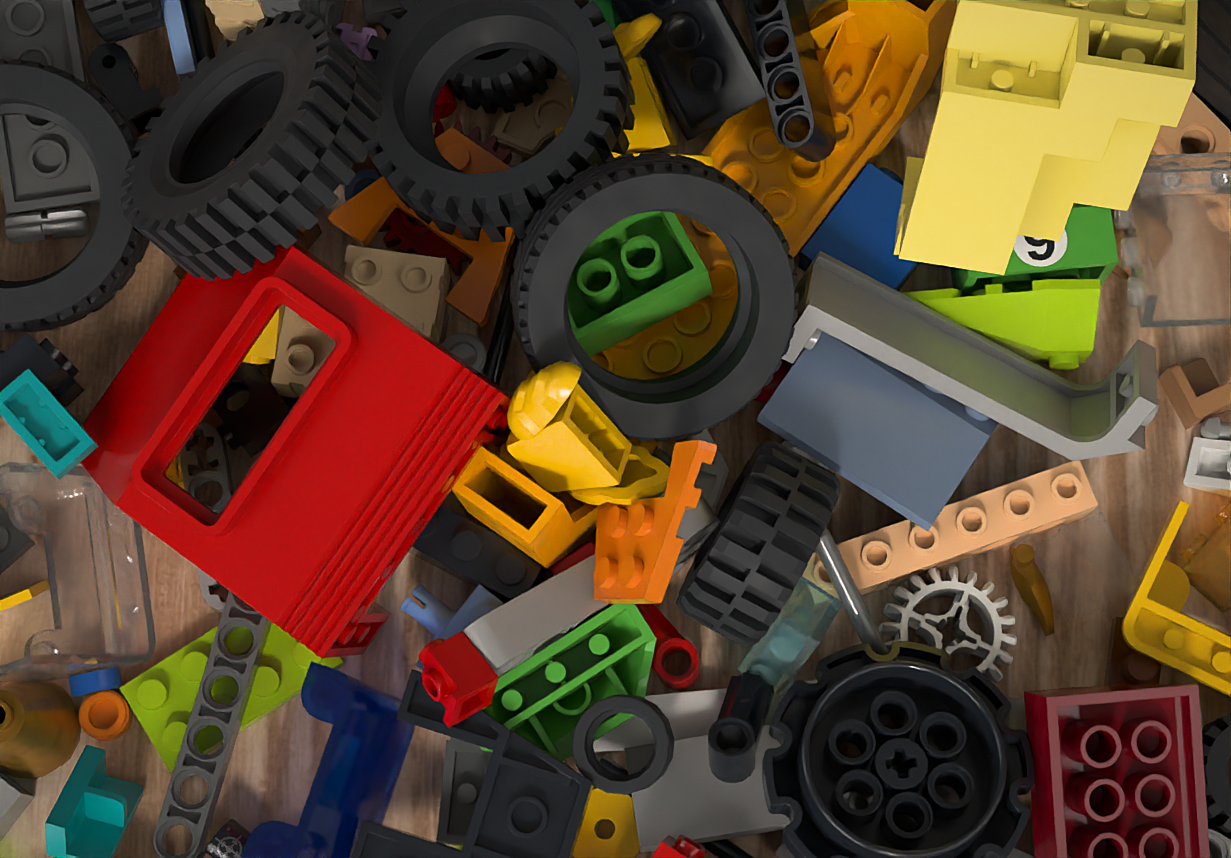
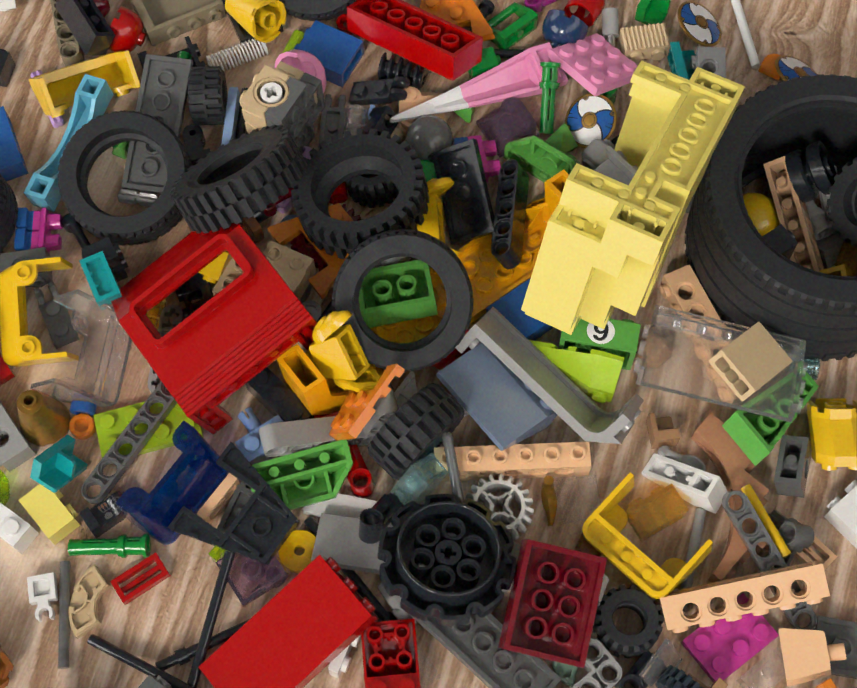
camera: 15 degrees right, 10 degrees down
(419, 780) = (218, 499): none -> light nougat tile
(457, 677) = (250, 449): red brick -> none
(584, 738) = (300, 502): black tyre -> none

